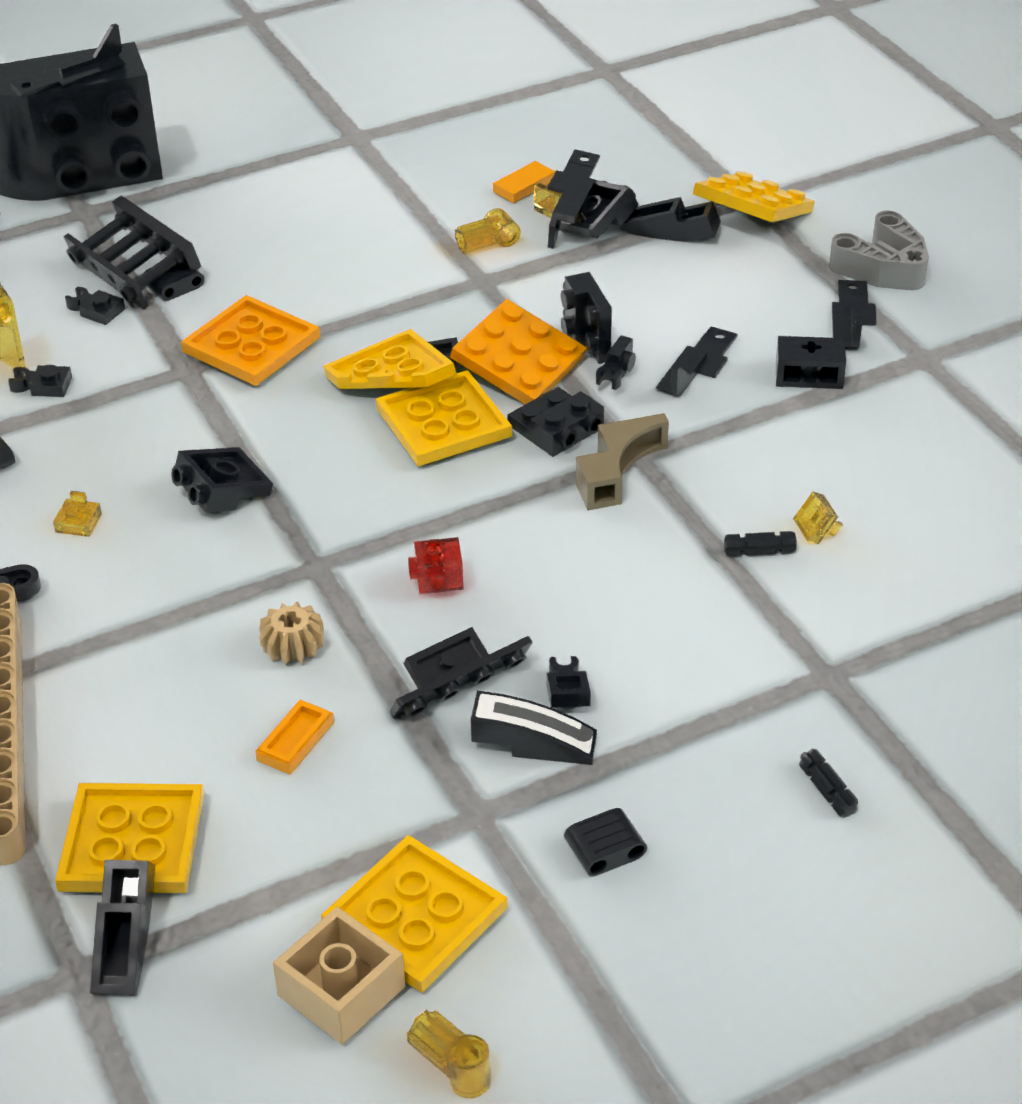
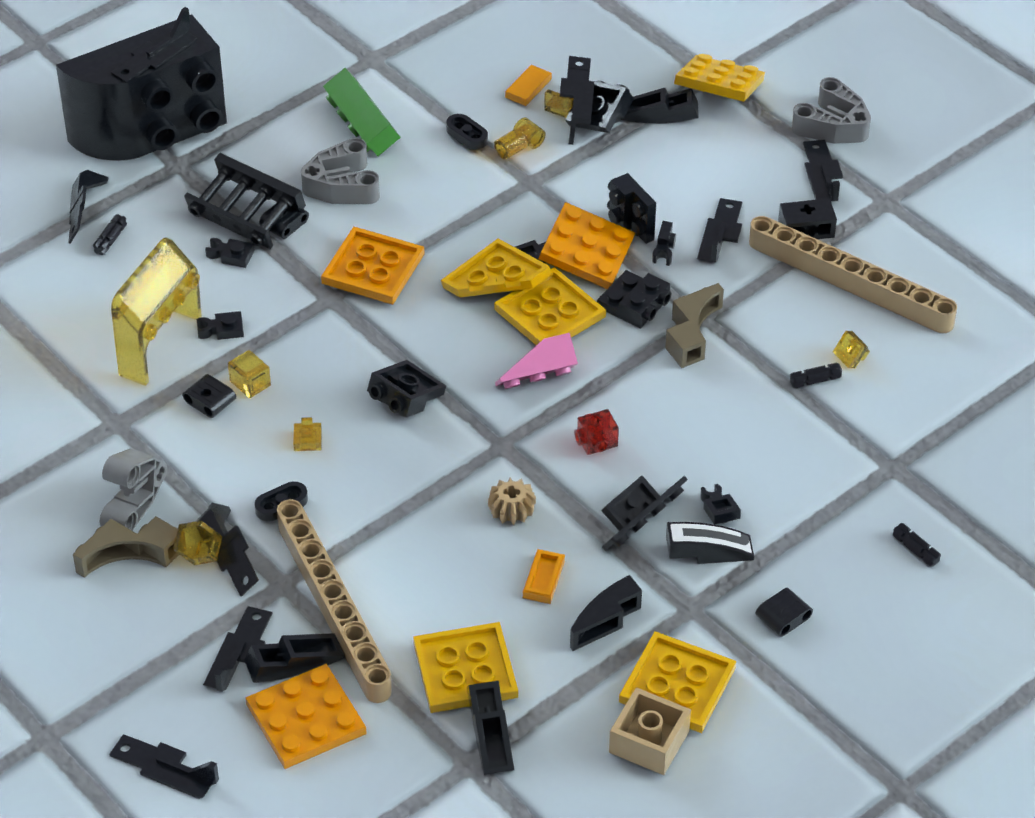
camera: 15 degrees left, 5 degrees up
(41, 435) = (249, 374): none -> clear yellow panel
(259, 241) = (332, 179): none -> light grey connector
(311, 182) = (361, 112): none -> bright green brick
(350, 798) = (606, 612): none -> black slope
(406, 469) = (548, 356): none -> bright pink slope
(429, 217) = (467, 131): none -> black plate
(457, 1055) = (746, 768): clear yellow piece -> none
(853, 433) = (853, 274): none -> tan beam

